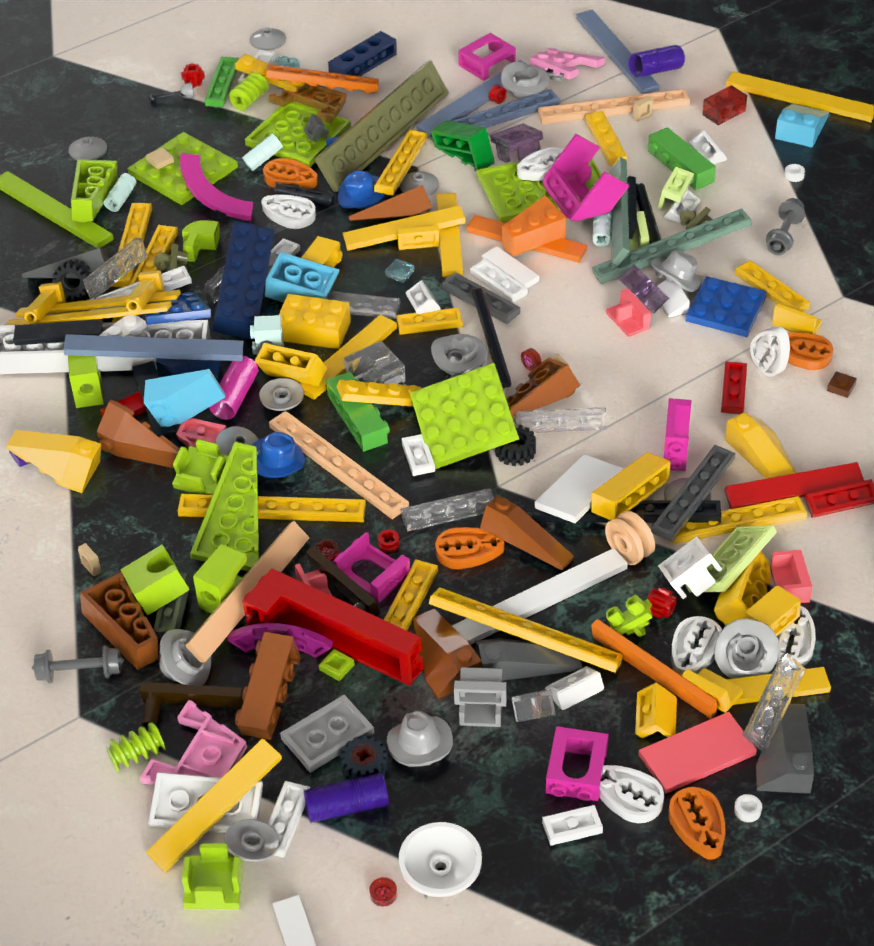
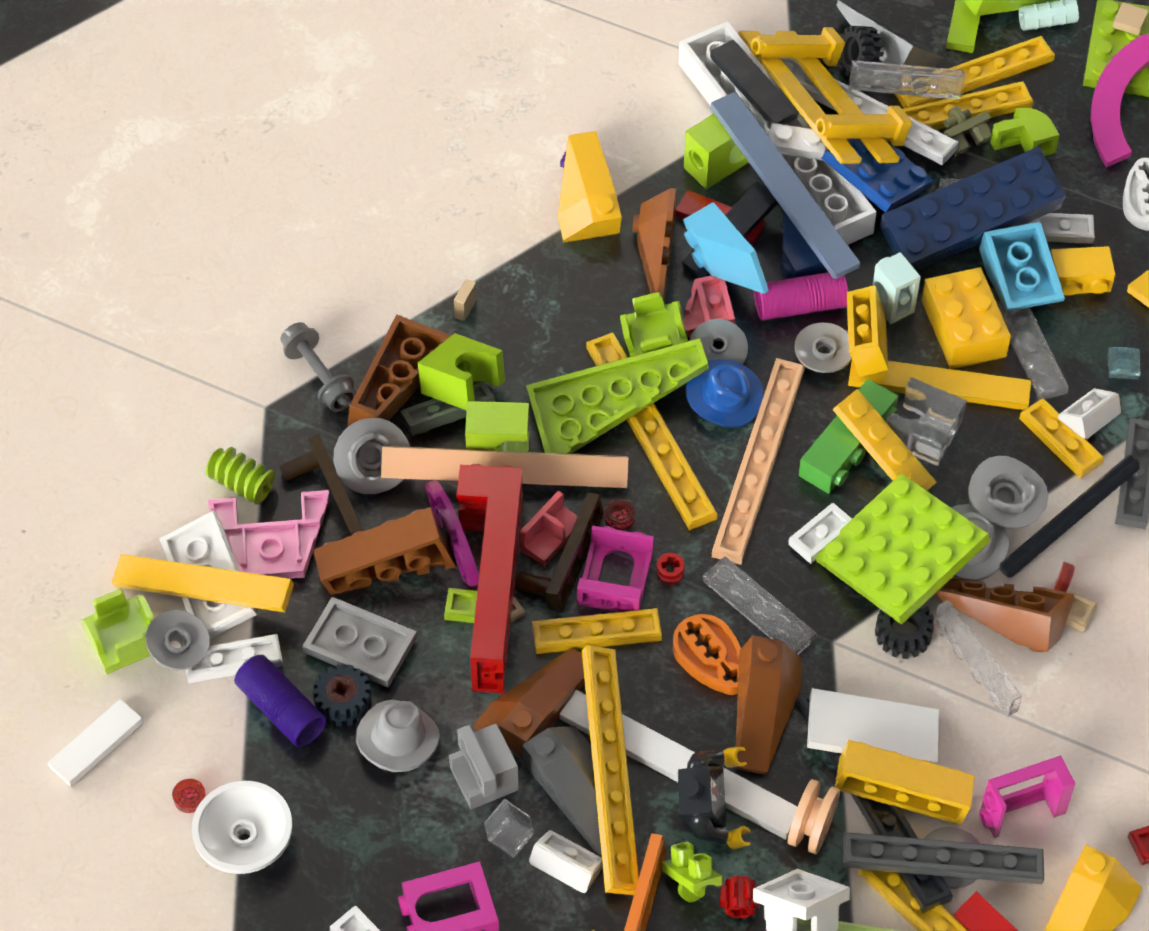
camera: 60 degrees right, 10 degrees up
(582, 584) = (704, 796): none -> black torso

